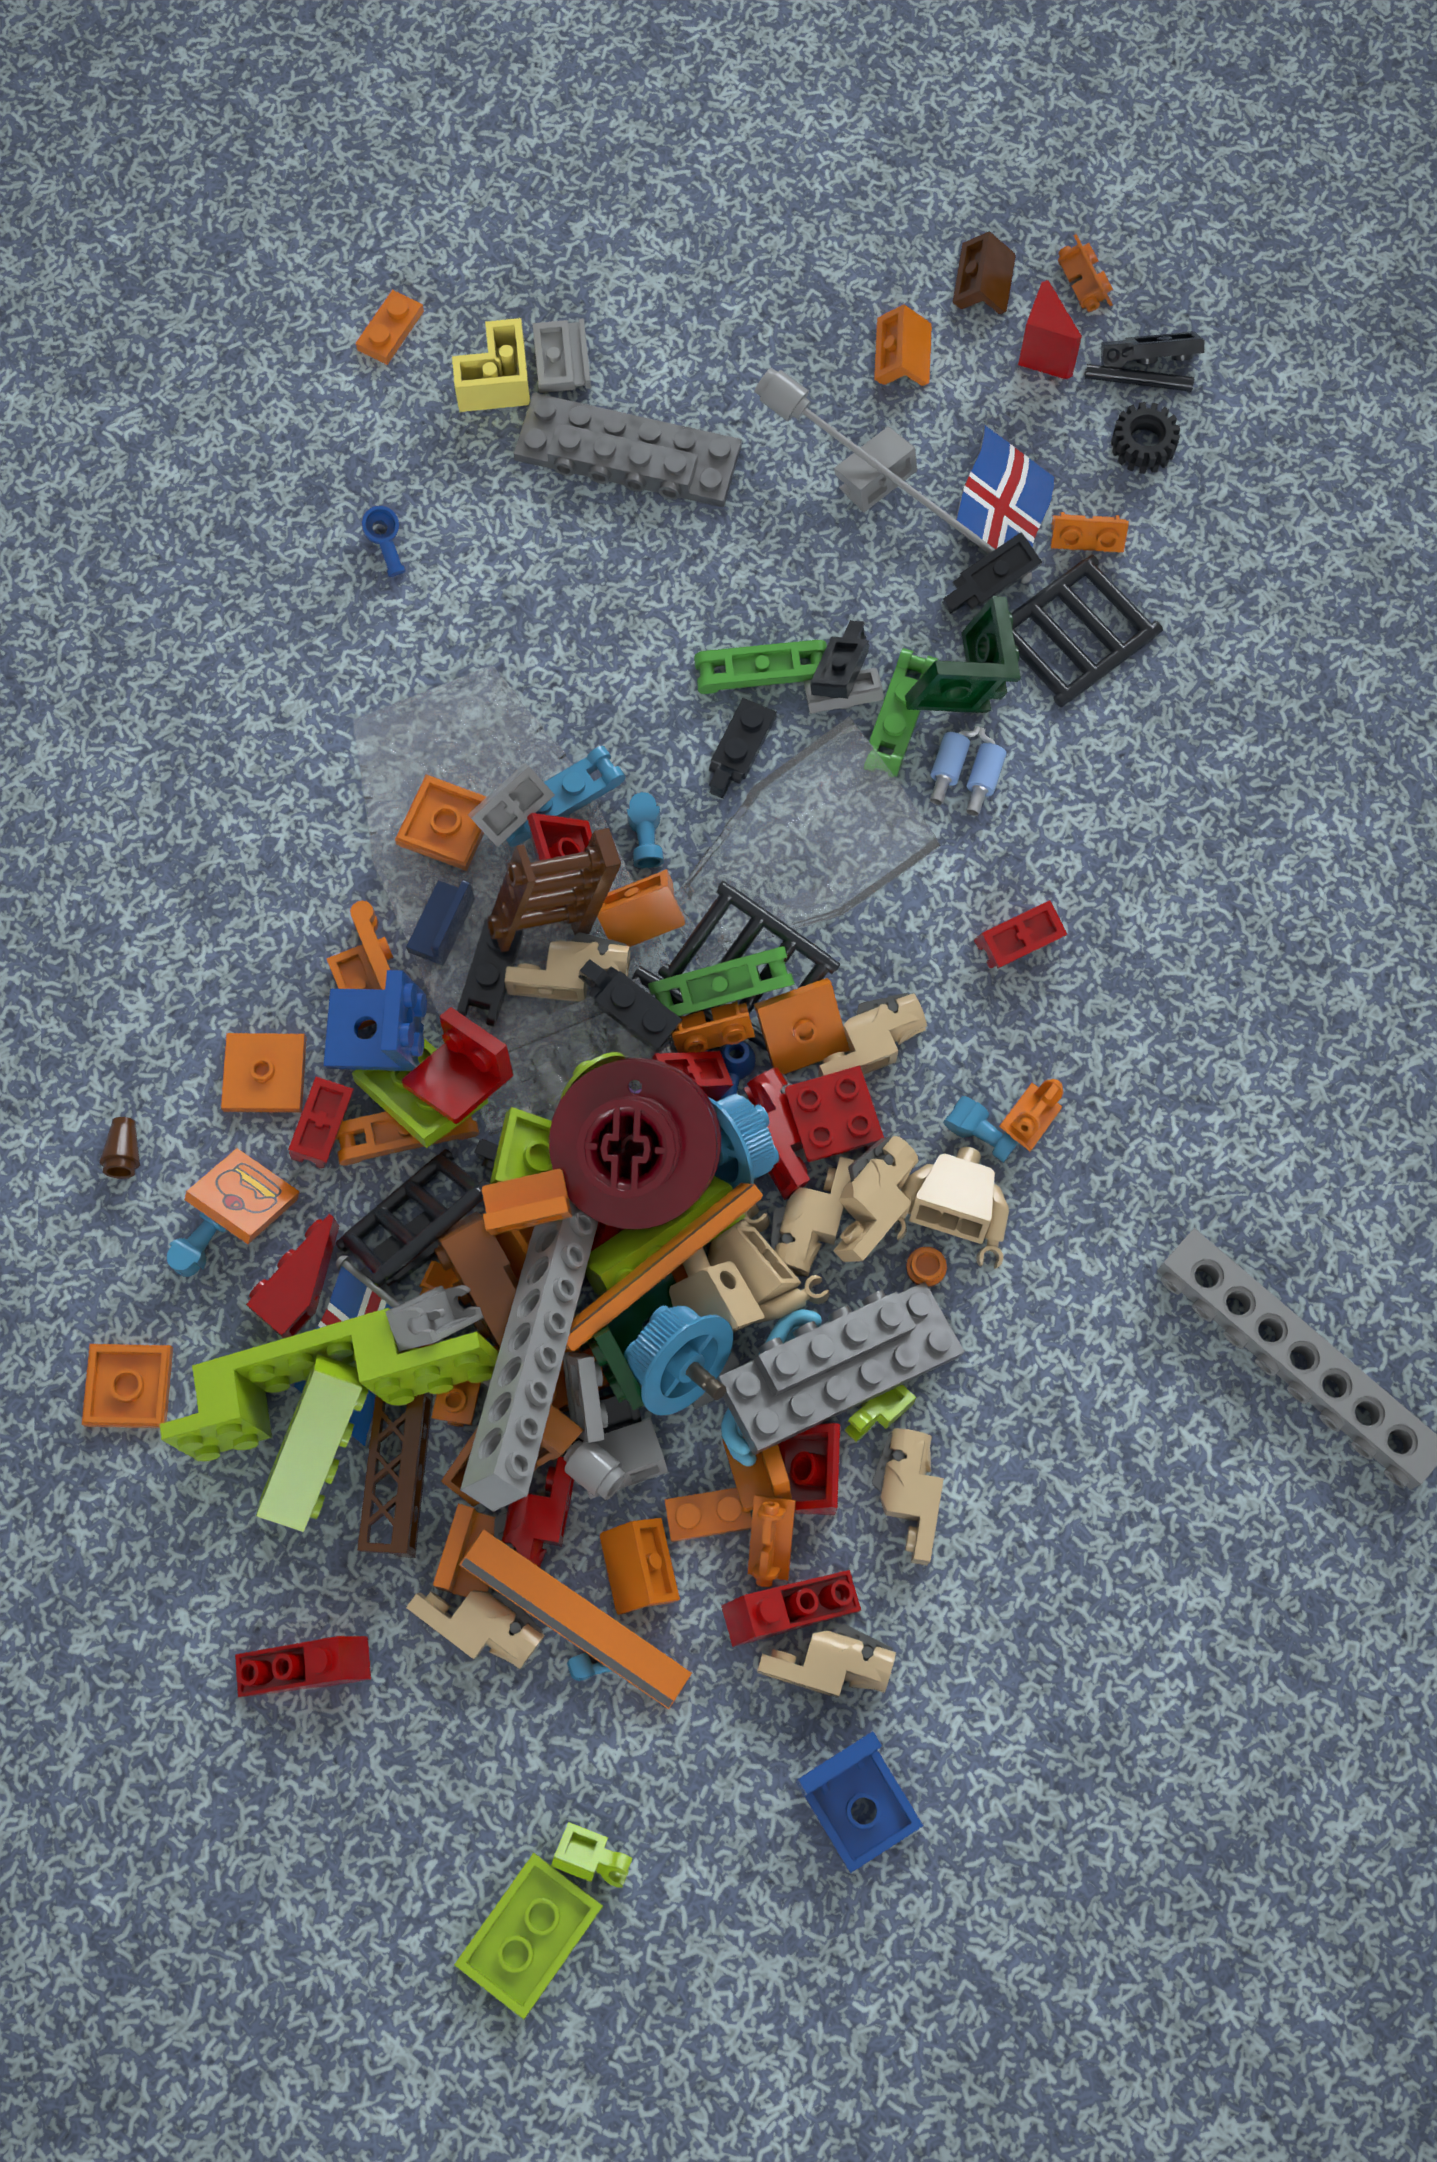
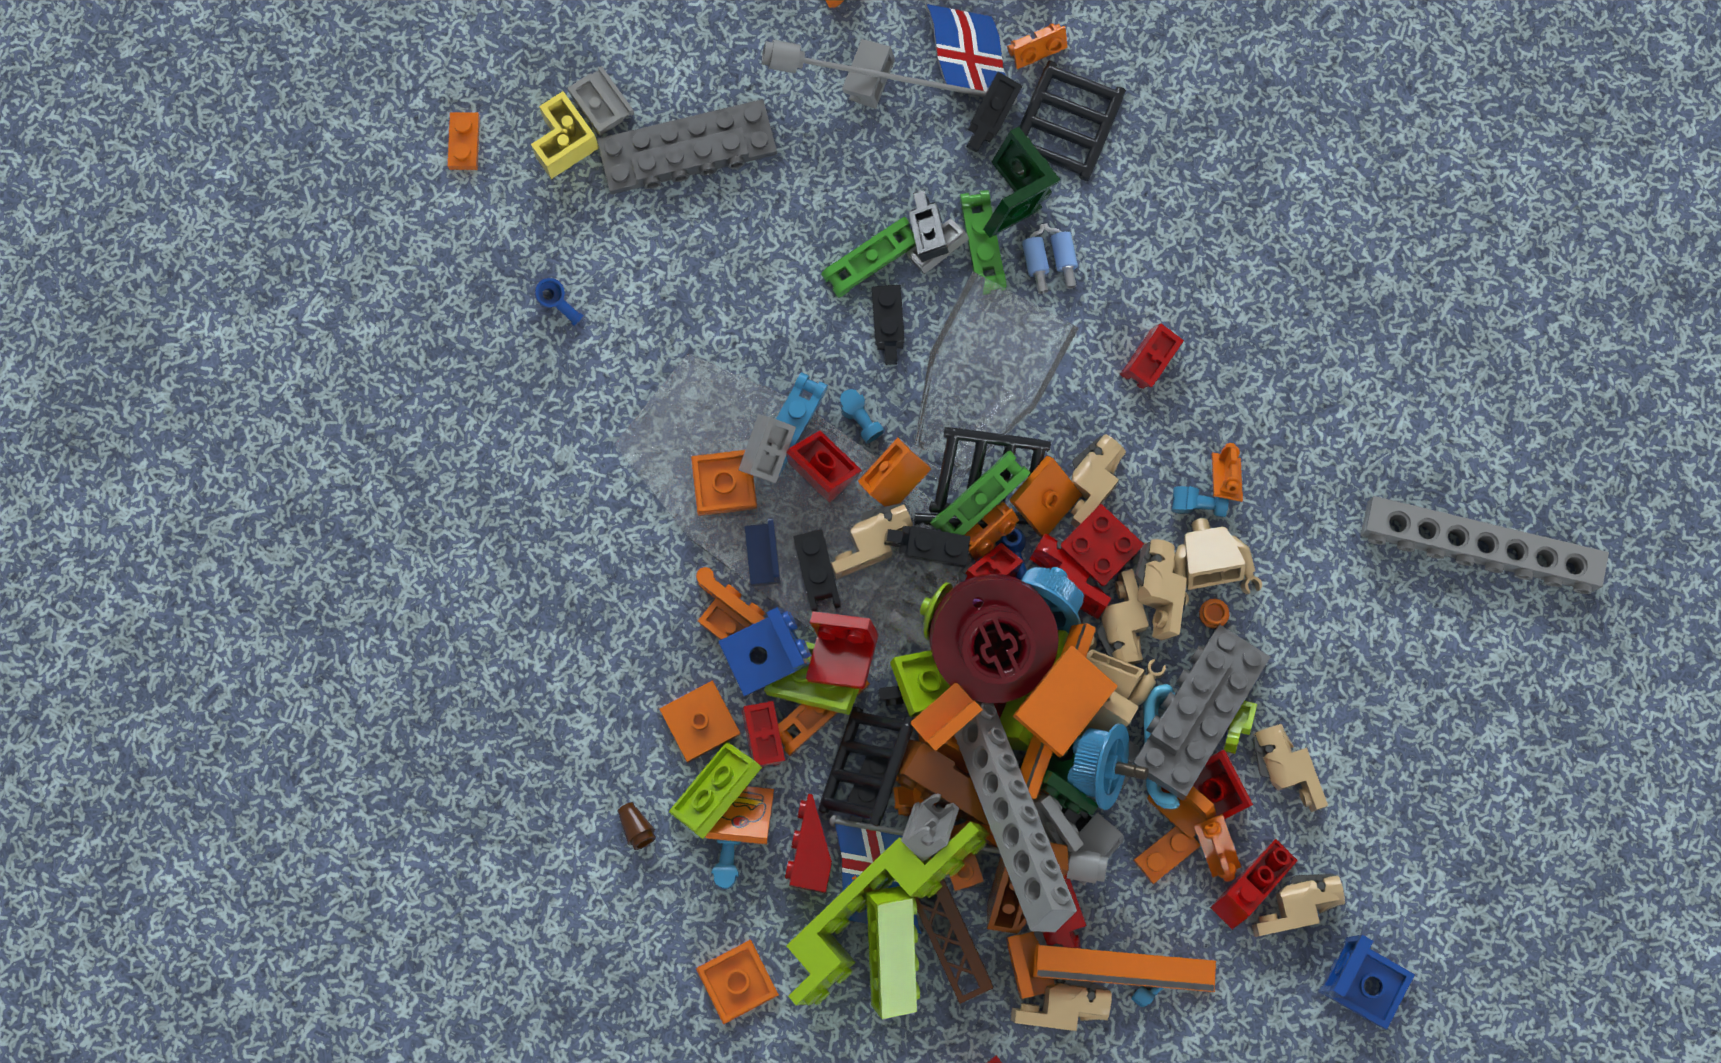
camera: 30 degrees left, 5 degrees up
(228, 1153) = (715, 789): none -> lime tile
(568, 897) = (849, 492): reddish brown fence -> none
(639, 1565) = (1142, 911): orange panel -> none
(673, 1256) = (1065, 701): none -> orange tile

